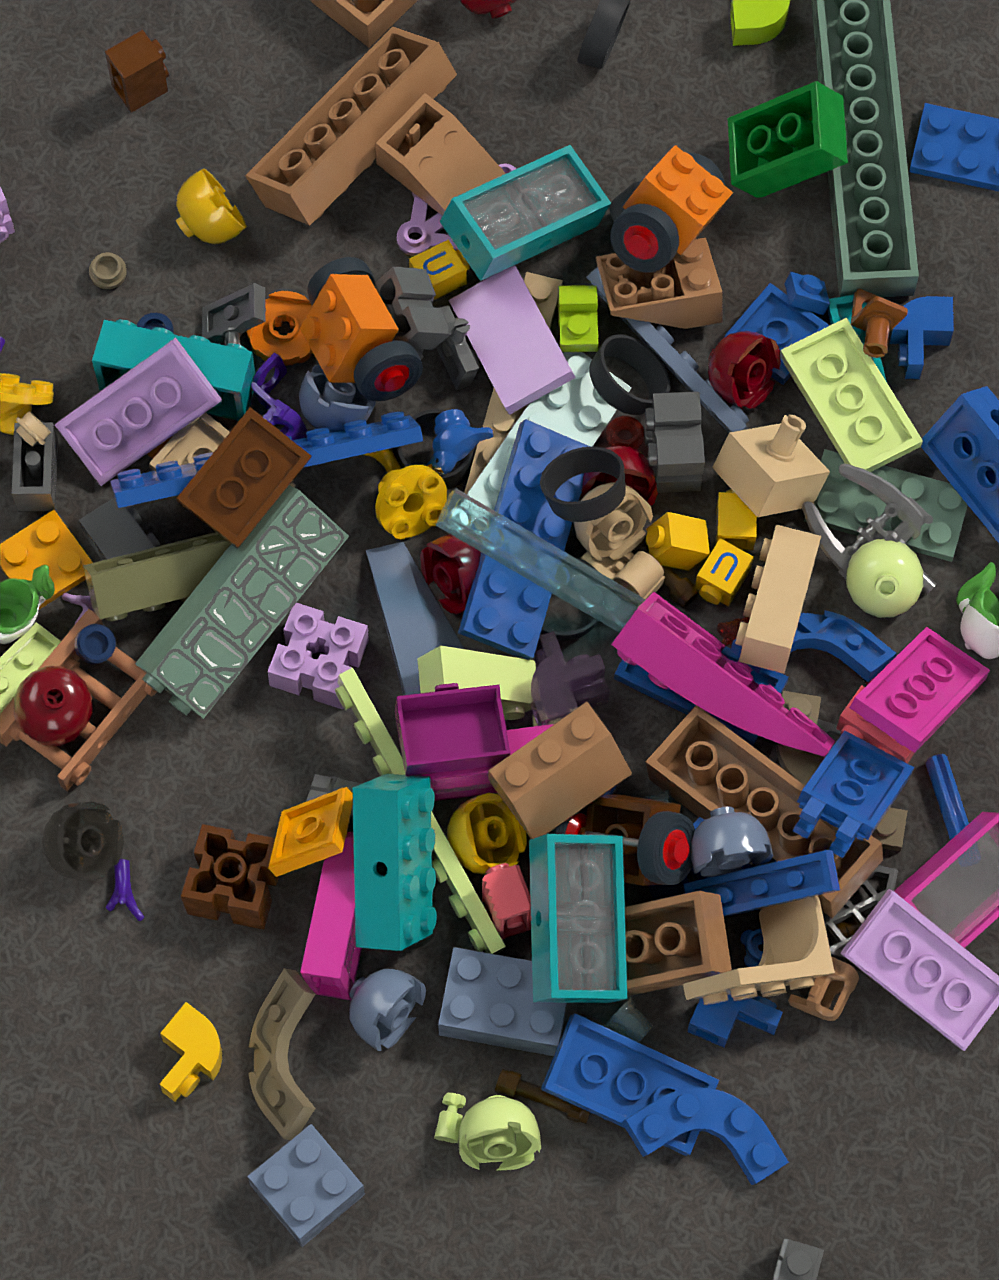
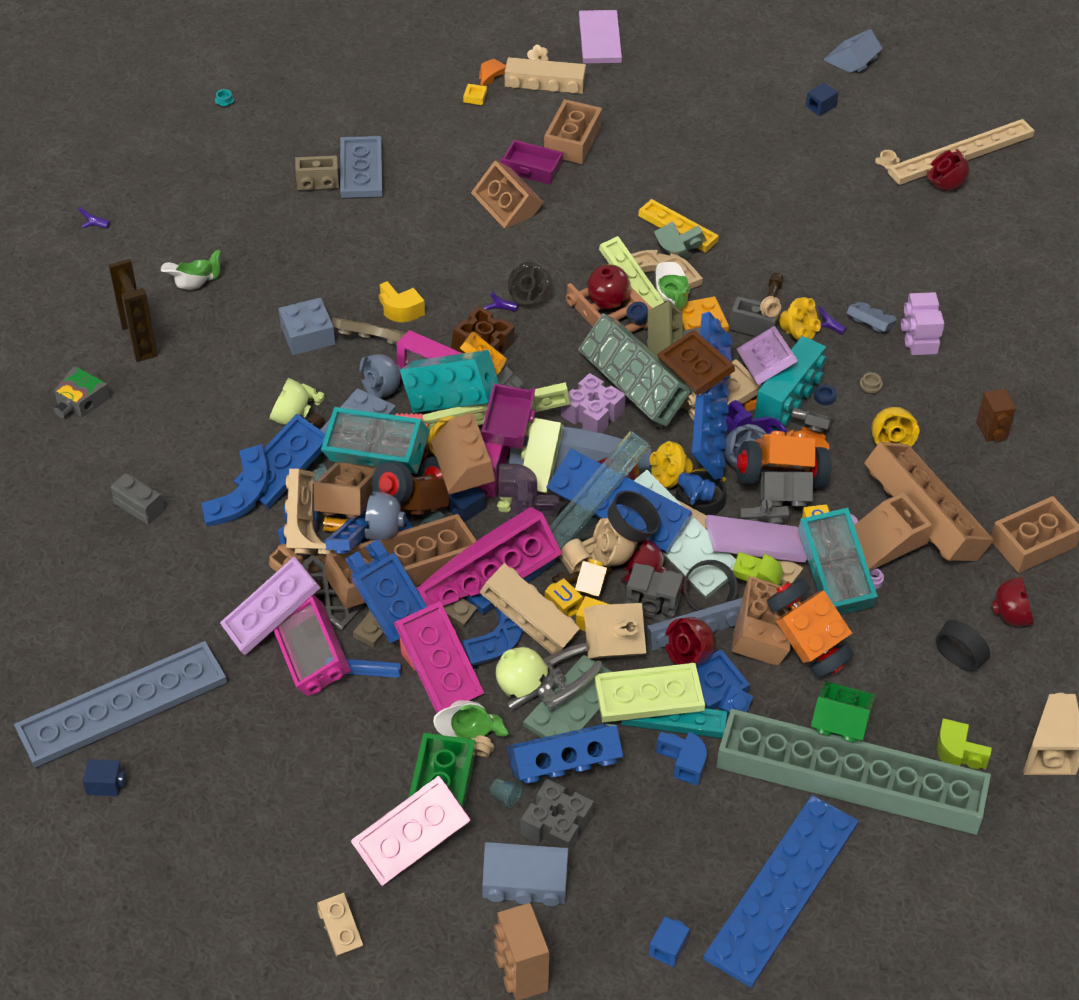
camera: 110 degrees right, 20 degrees down
(876, 319) = (697, 720): dark orange bracket -> none

